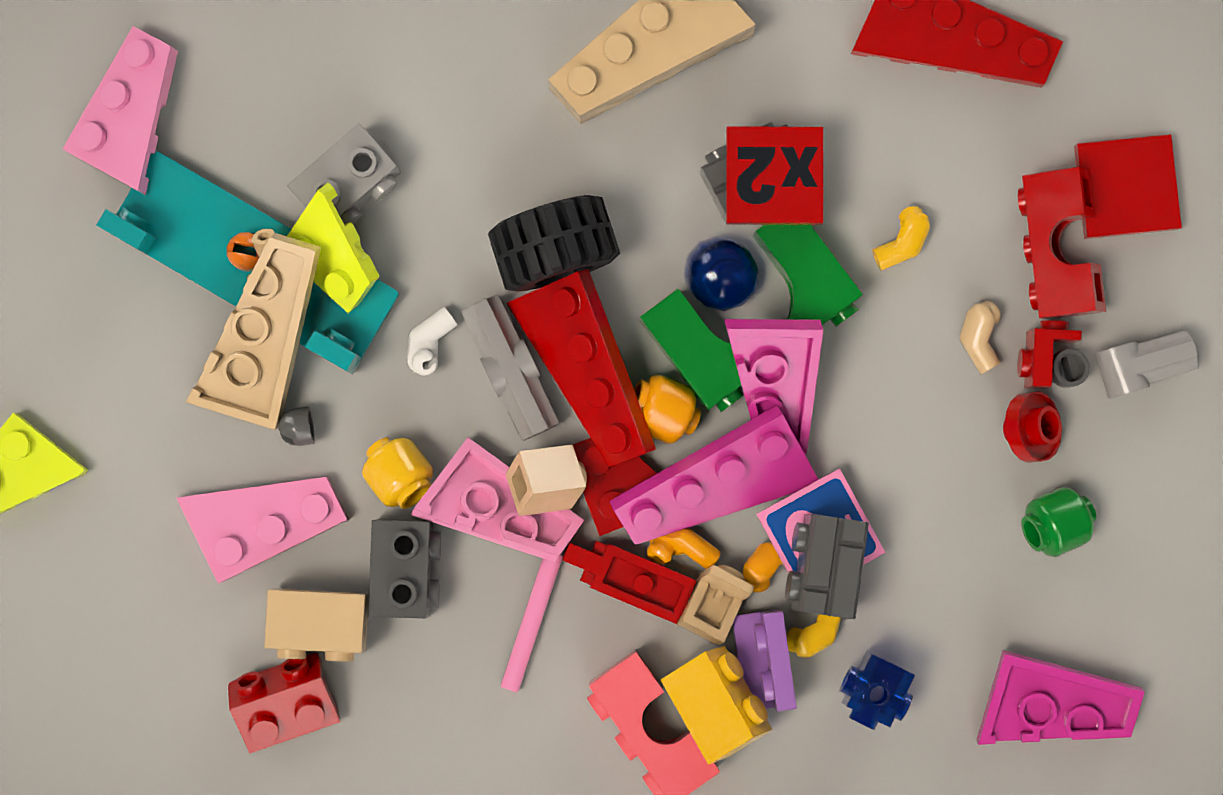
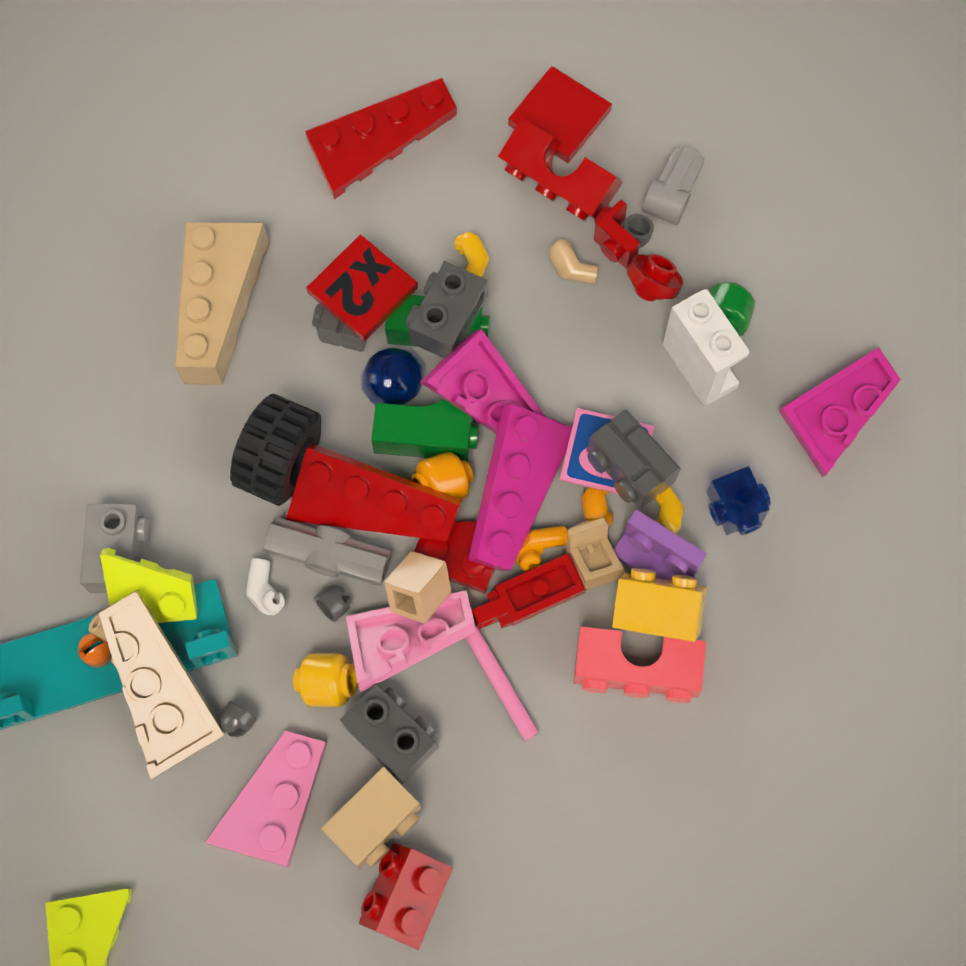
camera: 45 degrees left, 15 degrees down
(472, 414) = (332, 603): none -> dark grey hinge
(818, 276) = (447, 309): none -> dark grey brick
(996, 539) = (704, 346): none -> white panel

